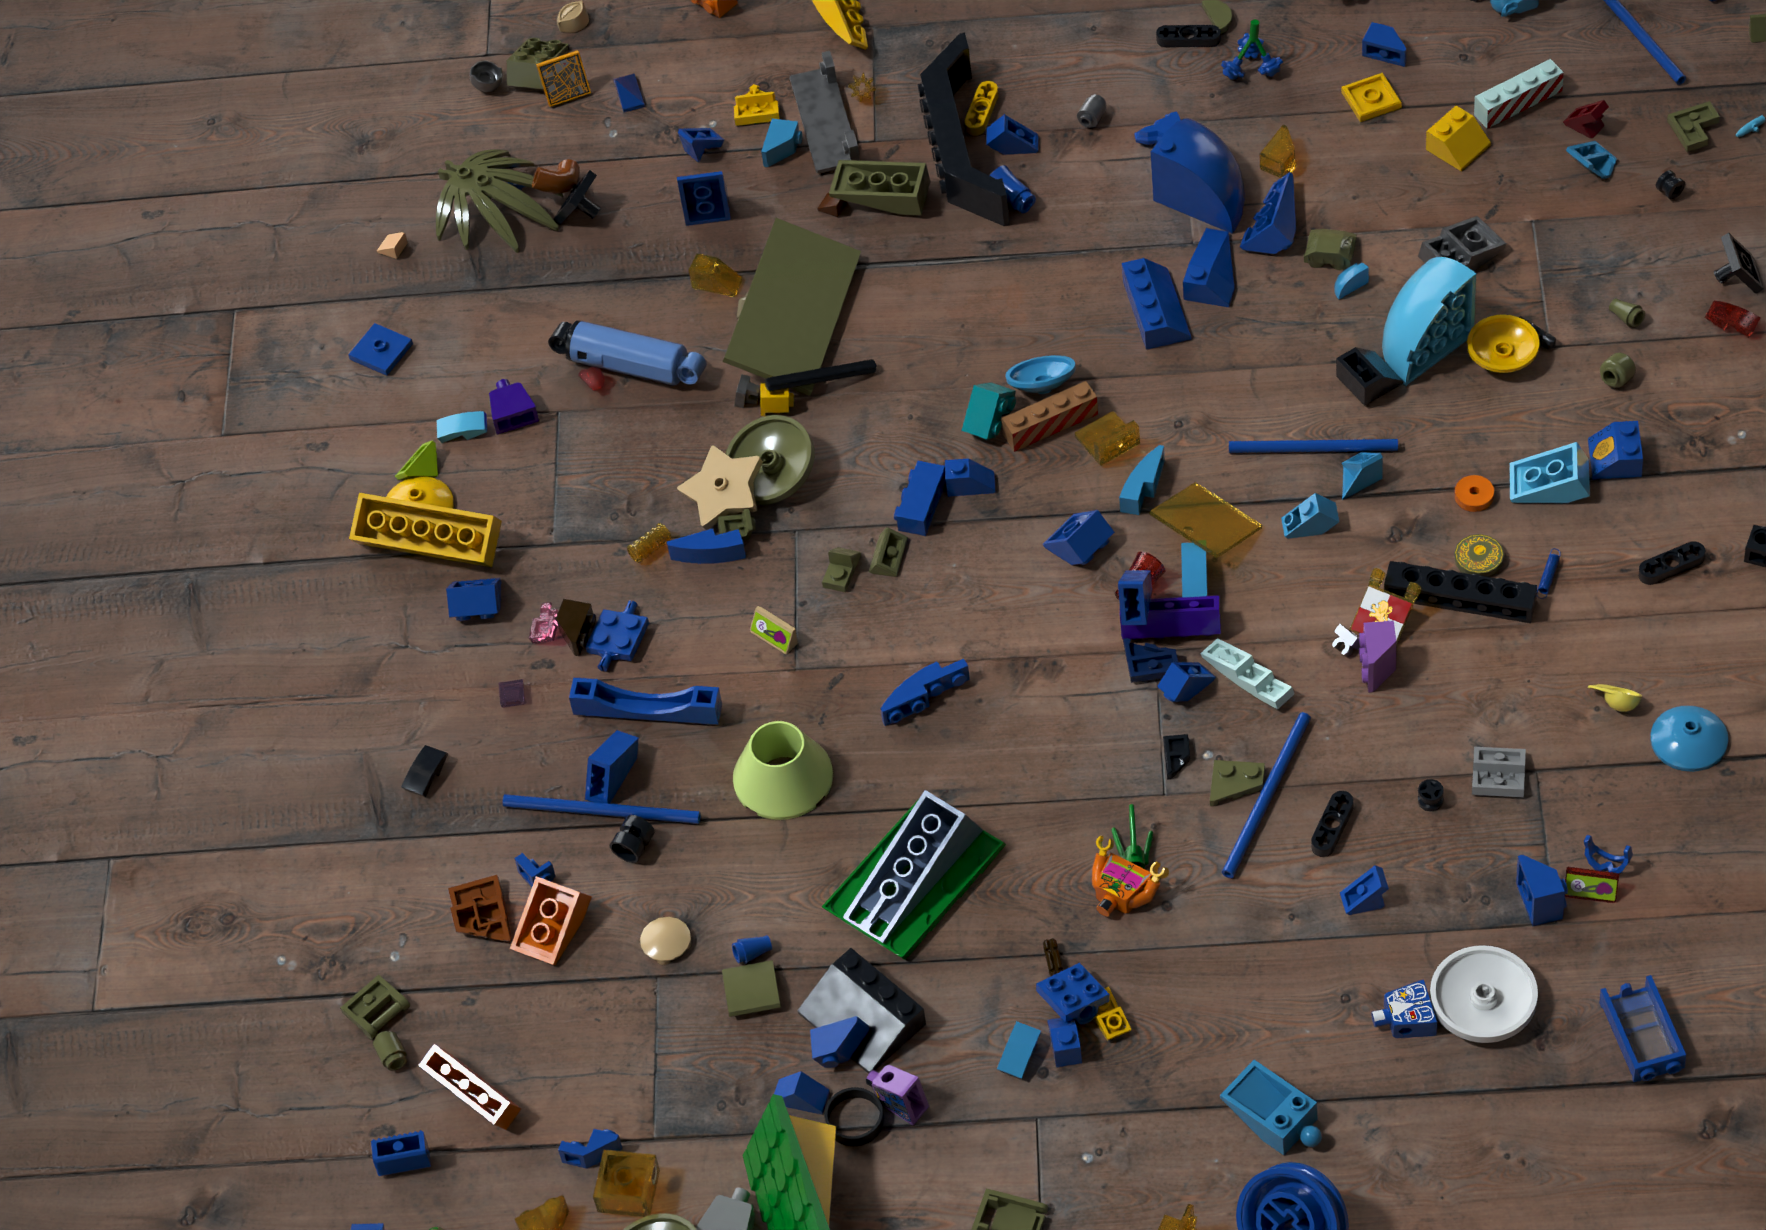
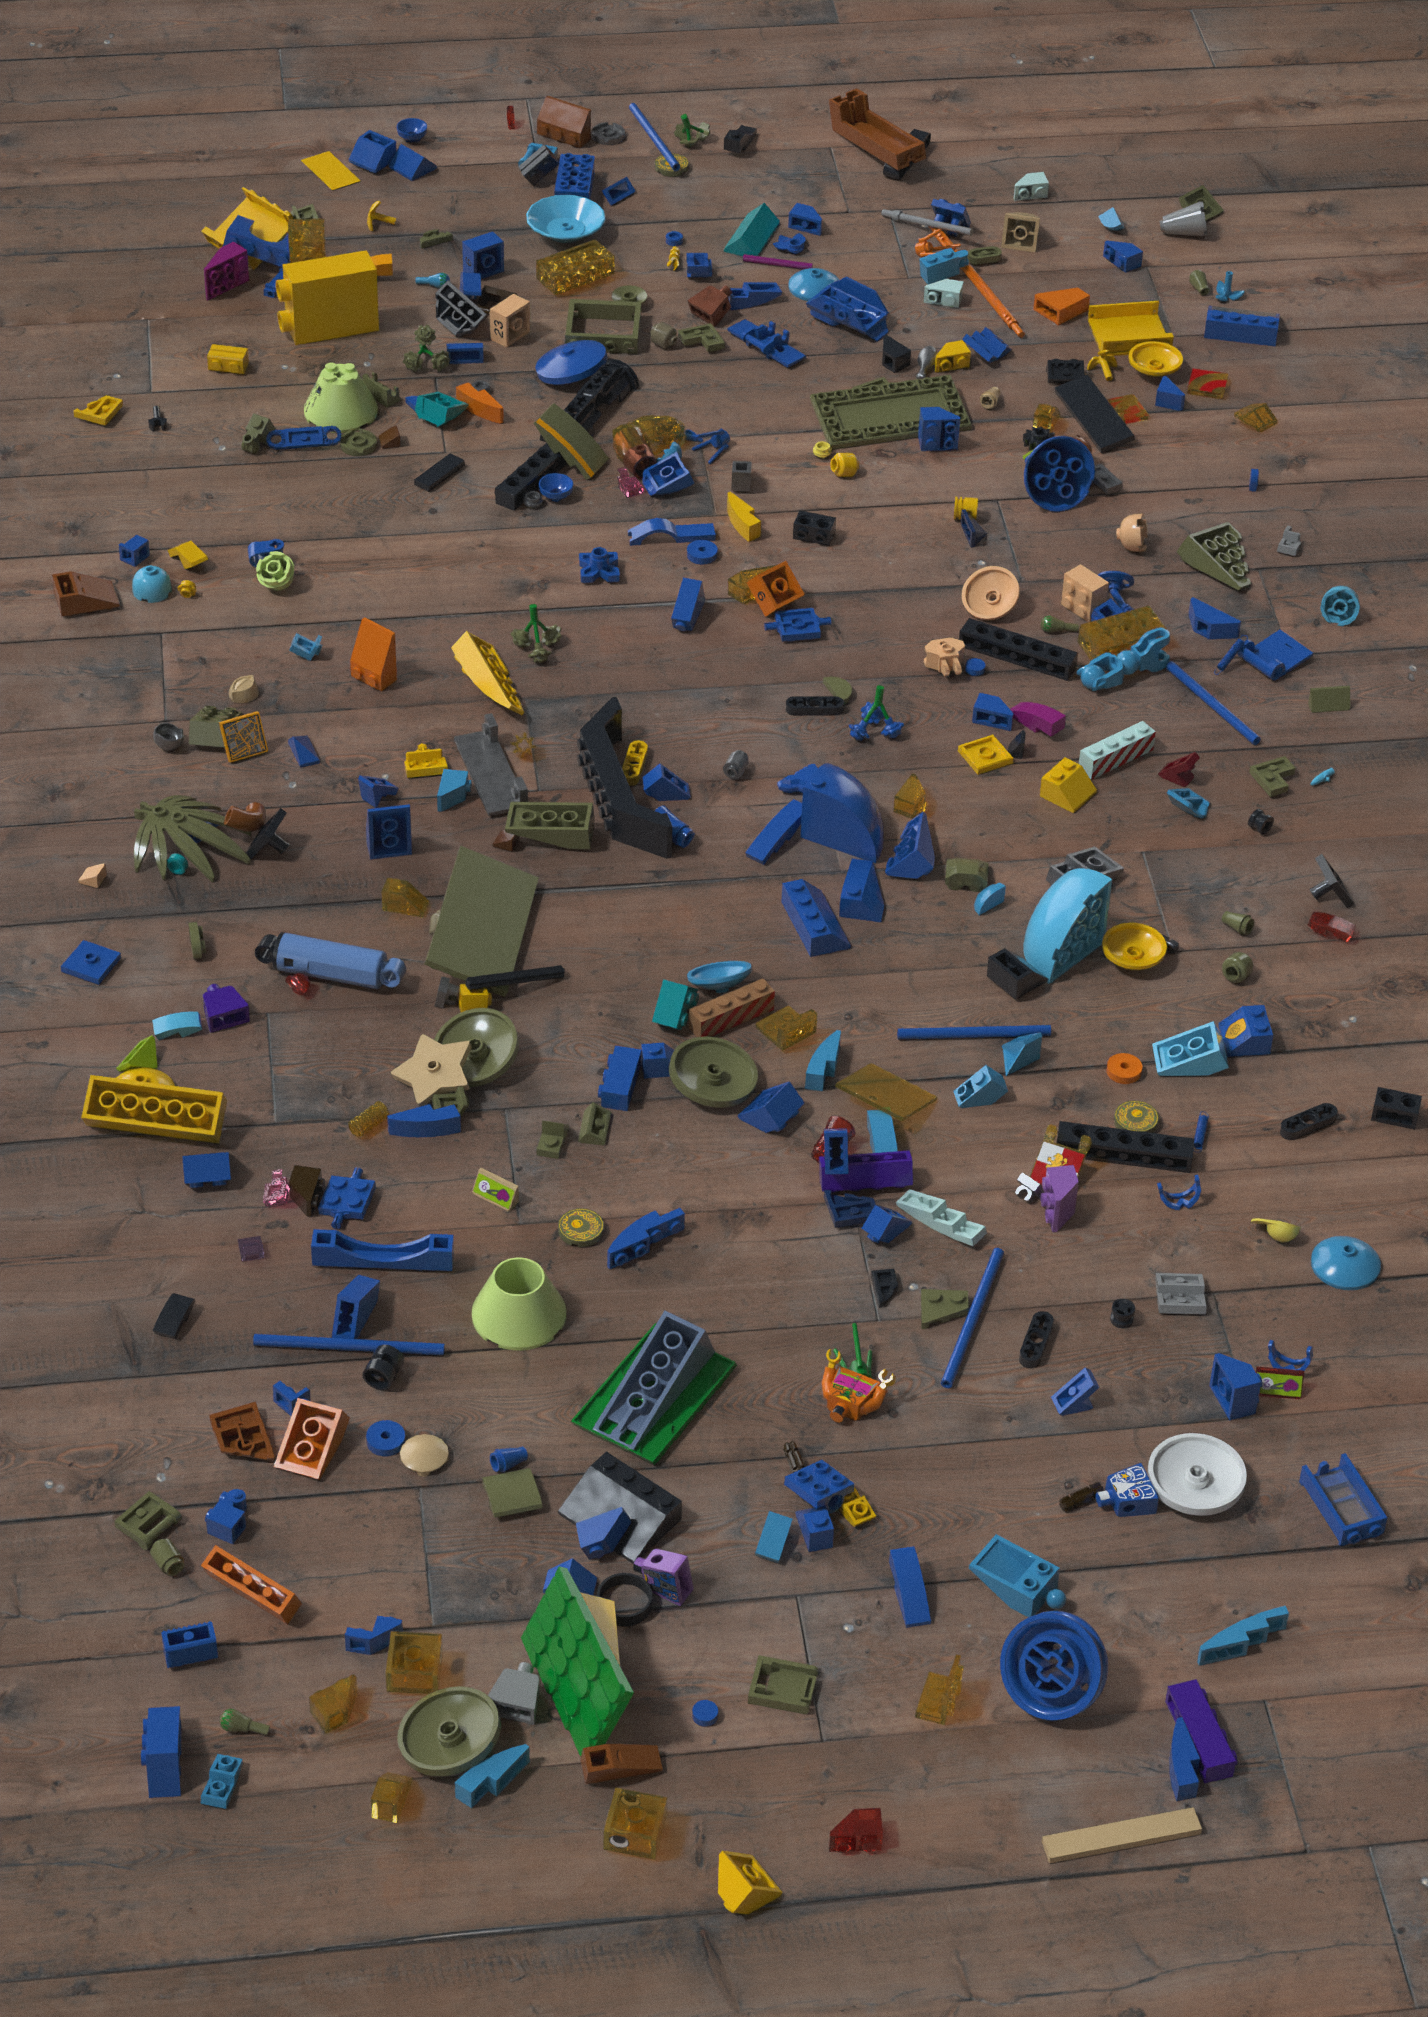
camera: 15 degrees left, 10 degrees down
(453, 1007) = (228, 1516): none -> blue brick
(480, 232) = (177, 864): none -> teal tile
(491, 331) = (196, 934): none -> olive plate
(627, 929) = (385, 1429): none -> blue piece
(859, 676) = (580, 1227): none -> tile
(1019, 493) = (713, 1072): none -> olive dish
(1124, 197) = (775, 833): none -> blue slope
(1156, 1115) = (909, 1586): none -> blue slope
(1355, 1014) = (1080, 1497): none -> dark brown axle
(1408, 87) = (1016, 746): none -> black slope
(1435, 51) = (1039, 717): none -> magenta slope
(1495, 650) = (1182, 1202): none -> blue helmet
(1499, 1191) = (1235, 1639): none -> dark azure slope

